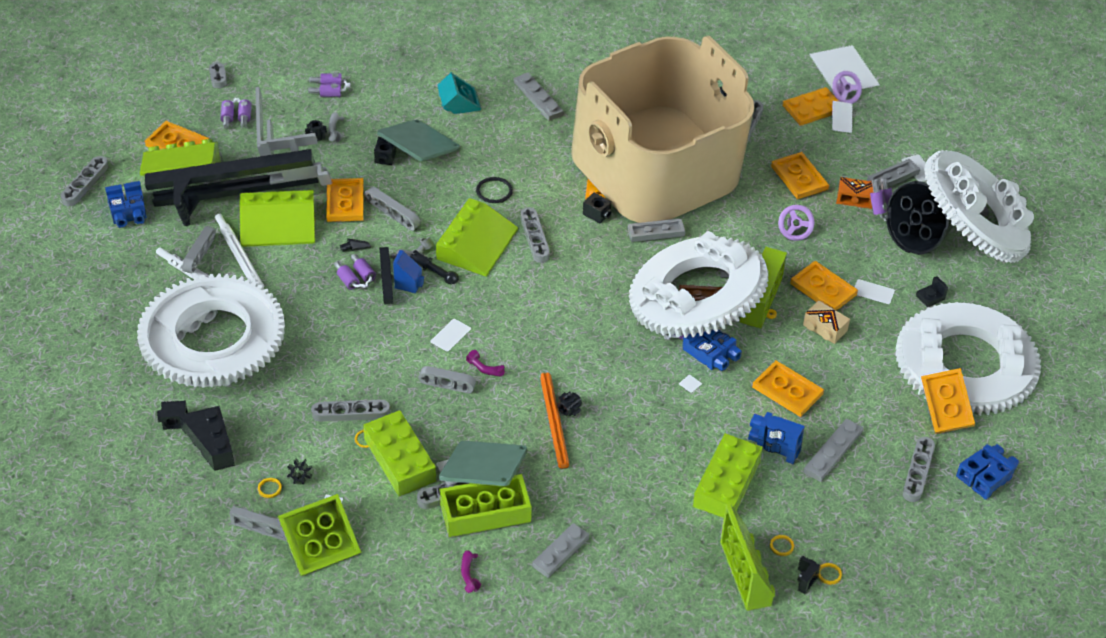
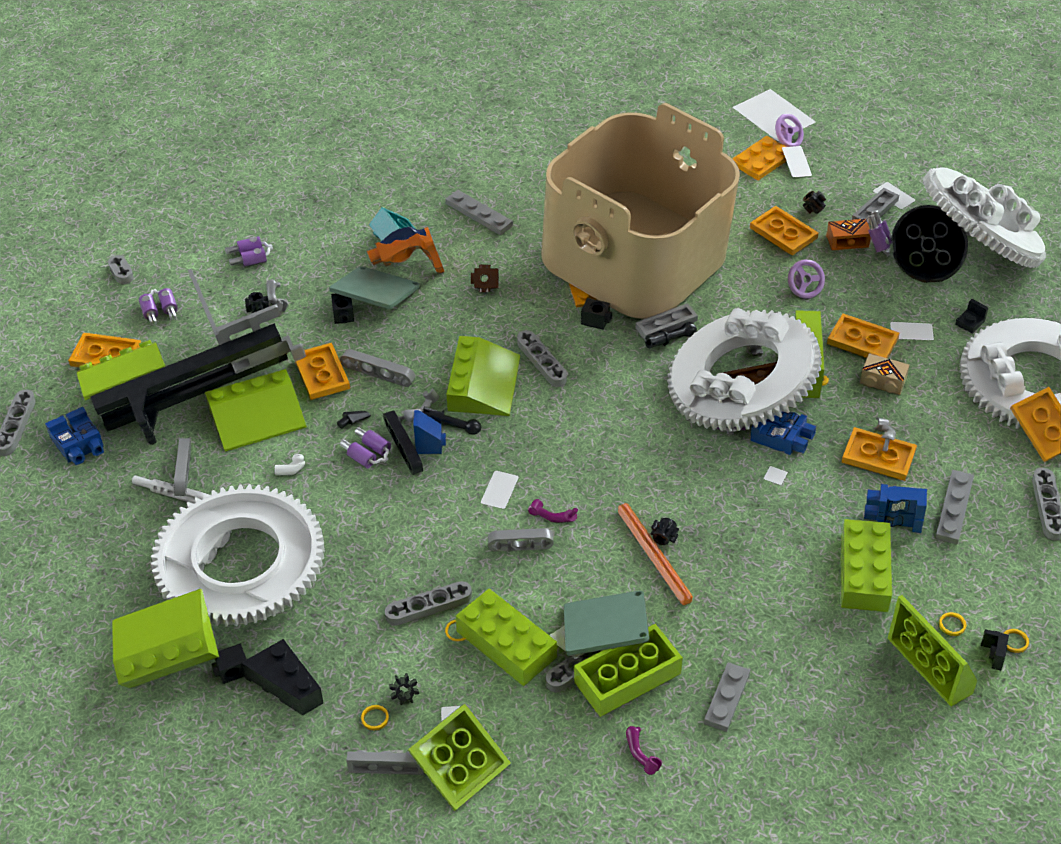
camera: 15 degrees left, 0 degrees up
(125, 381) = (162, 639): none -> lime slope
(238, 251) = (224, 456): white axle -> none
(287, 274) = (291, 468): none -> white arm
(454, 109) = (401, 244): none -> orange hips
(494, 179) = (476, 309): black piece -> none
(521, 154) = (491, 283): none -> reddish brown brick
(647, 243) = (664, 337): none -> black pin
(804, 371) = (890, 433): none -> light grey piece
(838, 156) = (814, 202): none -> black gear

